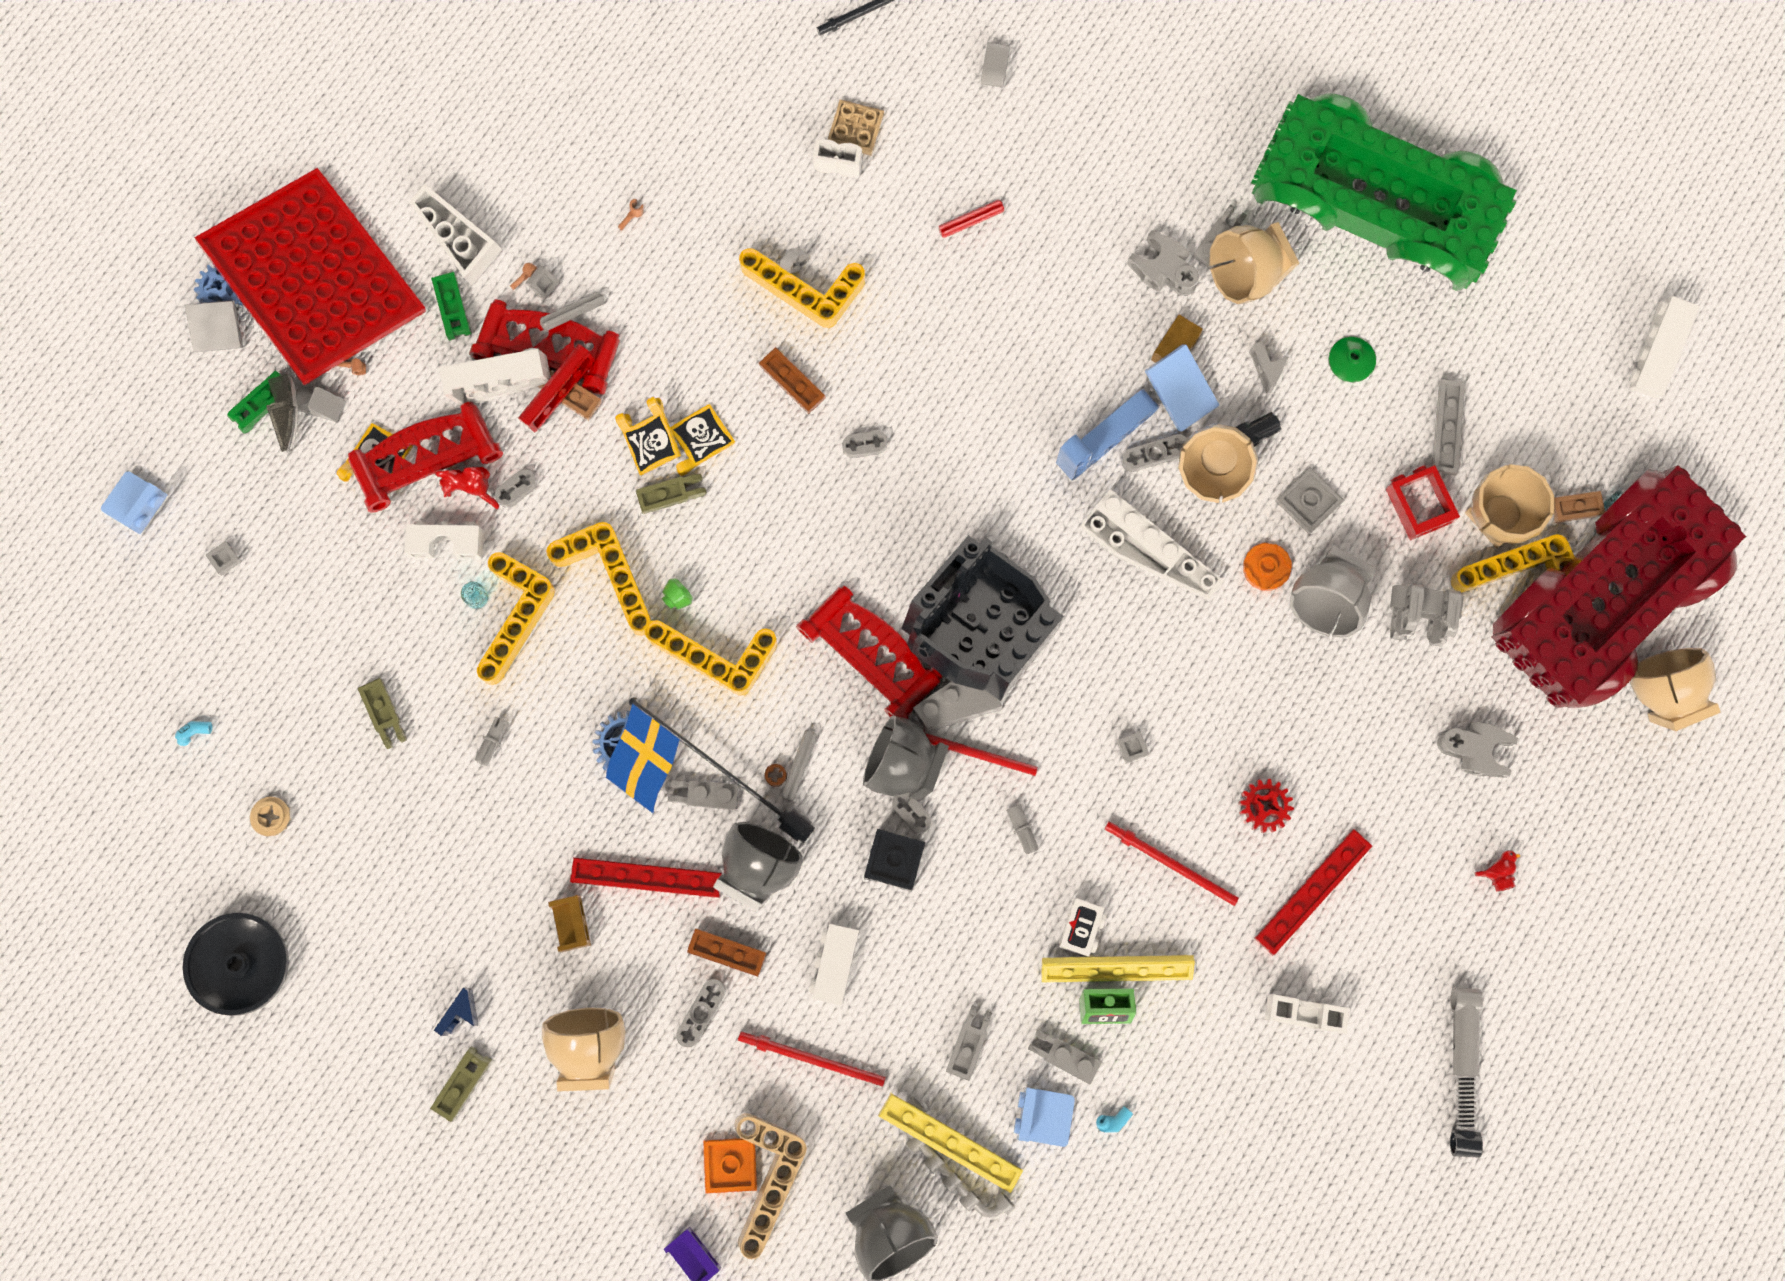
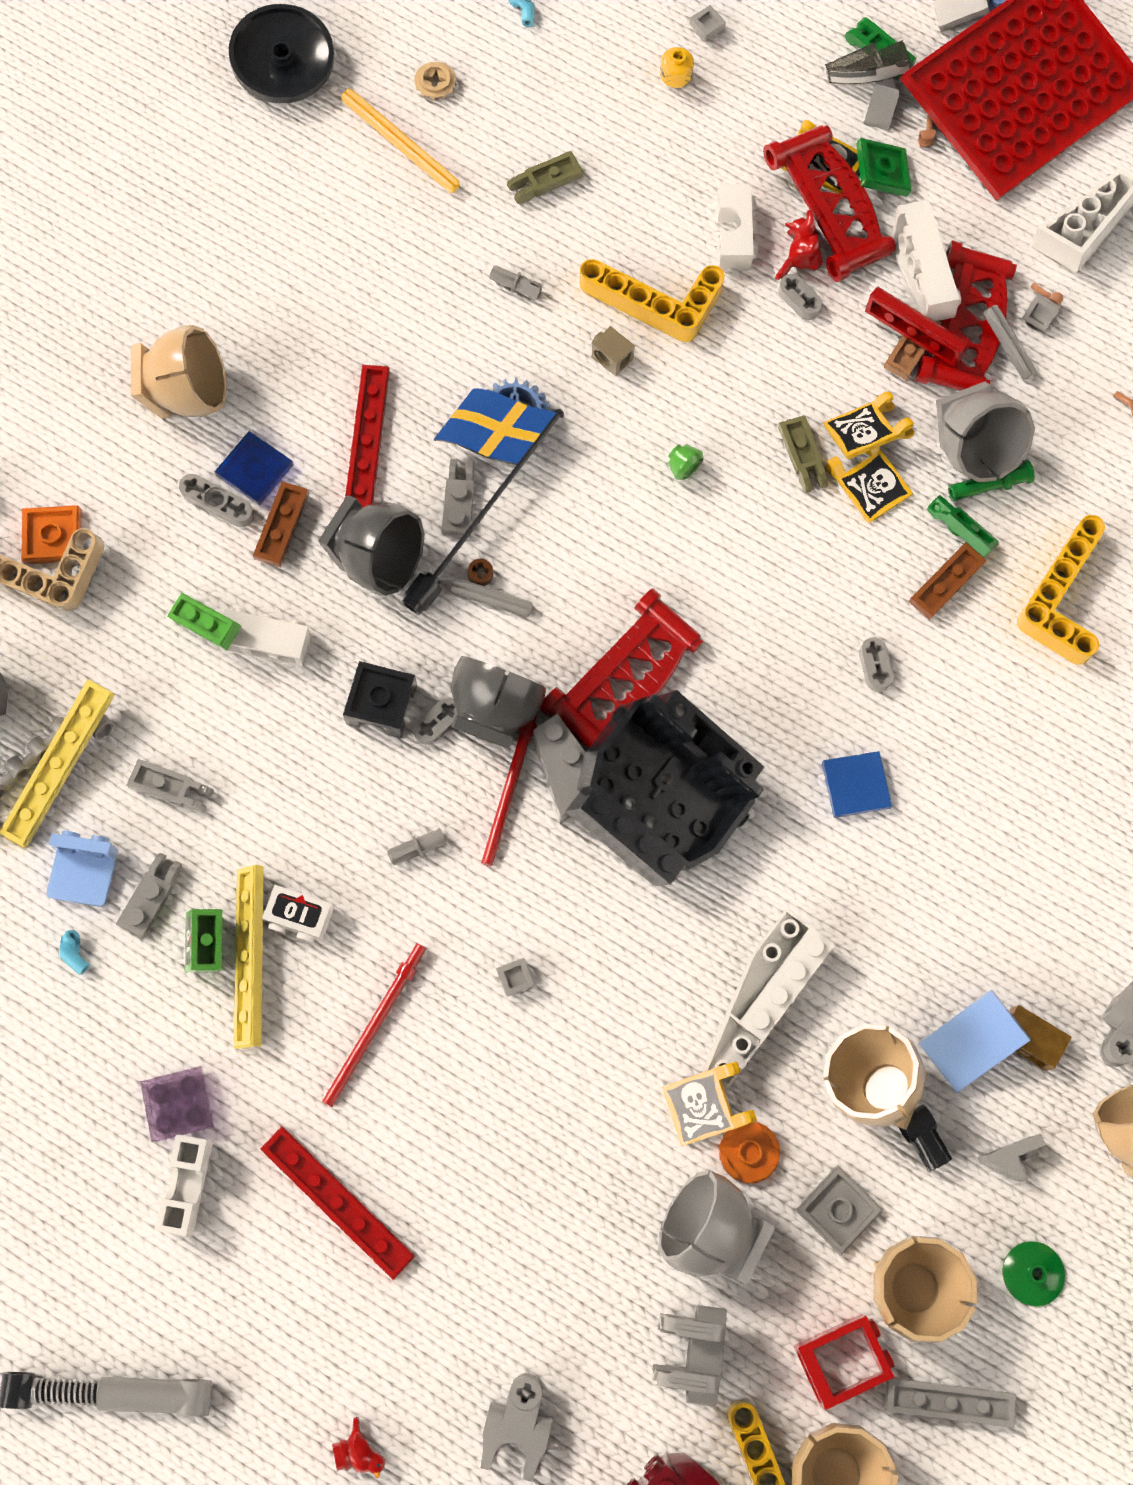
camera: 85 degrees right, 5 degrees down
(273, 587) = (676, 67): none -> yellow head
(333, 850) = (400, 140): none -> yellow axle
(390, 406) = (883, 167): none -> green tile
(451, 305) = (1004, 223): green plate -> none
(460, 1085) = (150, 267): olive plate -> none
(462, 1007) = (226, 262): dark blue slope -> none
(478, 598) = (671, 263): clear light blue wheel -> none
(565, 655) = (612, 350): none -> dark tan brick
(570, 923) = (317, 368): pearl gold panel -> none
(614, 569) = (711, 393): yellow beam -> none
(658, 339) = (984, 430): none -> light grey plate
(669, 980) = (254, 468): none -> clear blue tile
(699, 328) = (970, 487): none -> green pin
(712, 660) = (610, 499): yellow beam -> none
(742, 363) = (963, 525): none -> green hinge
(764, 1043) = (179, 567): red bar -> none
(794, 260) = (1095, 576): light grey beam -> none
(822, 1016) = (204, 621): none -> bright green tile
(969, 466) = (856, 784): none -> blue tile
(1079, 454) = (905, 946): medium blue beam -> none
(1136, 452) = (872, 992): light grey beam -> none
(1236, 600) = (701, 1105): none -> flag
(1240, 1024) = (177, 1104): none -> clear purple tile
(1275, 811) = (431, 1134): red gear -> none
(1375, 439) = (924, 1289): none -> tan plate

